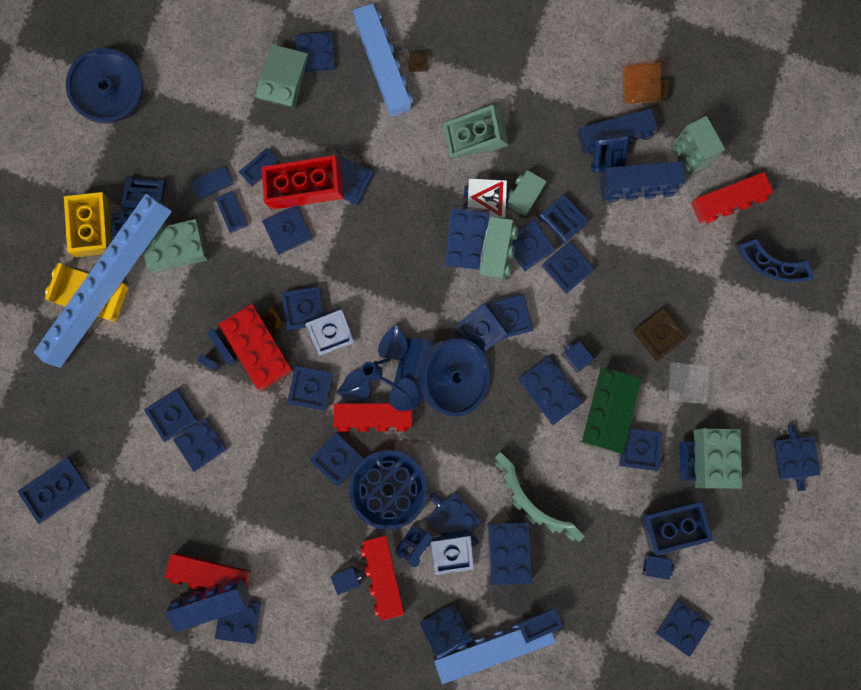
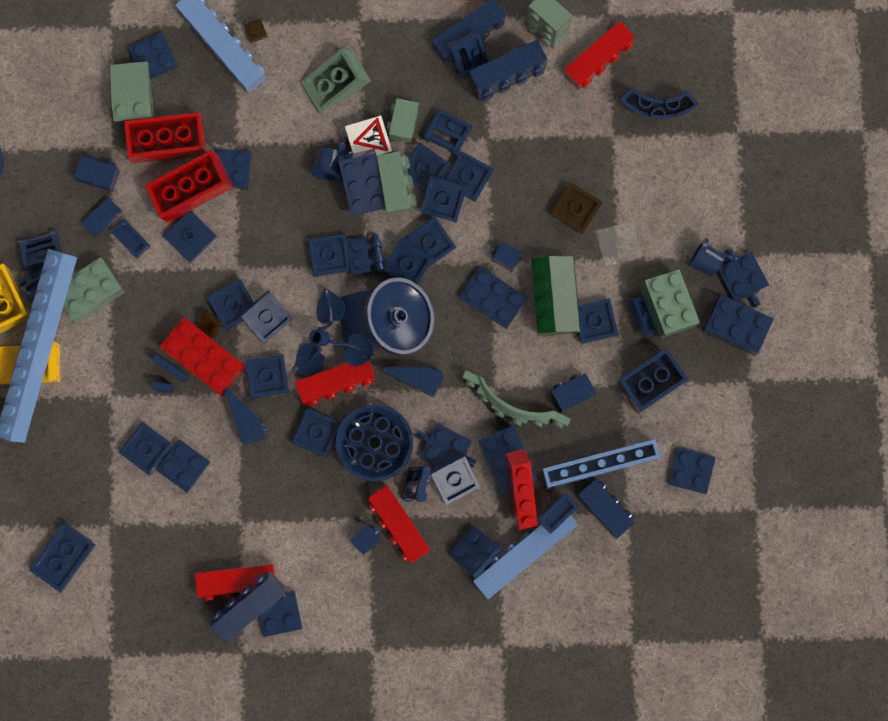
camera: 15 degrees left, 0 degrees up
(222, 140) = (97, 173): none -> dark blue brick
(253, 170) = (137, 191): dark blue tile -> none
(275, 426) = (248, 424): none -> dark blue slope
(297, 129) = (165, 137): none -> red brick
(410, 294) = (329, 255): none -> dark blue plate
(437, 307) = (359, 258): none -> dark blue plate
(439, 208) = (326, 163): none -> dark blue hat
(454, 443) = (419, 378): none -> dark blue slope
(513, 590) = (521, 489): none -> red brick
(537, 280) = (443, 198): none -> dark blue plate
(588, 636) = (606, 508): none -> dark blue brick
(595, 510) = (572, 392): none -> dark blue brick
(598, 590) = (600, 464): none -> medium blue brick
(657, 567) = (649, 423): dark blue brick -> none
(770, 428) = (708, 259): none -> dark blue hat
(777, 503) = (738, 325): none -> dark blue brick

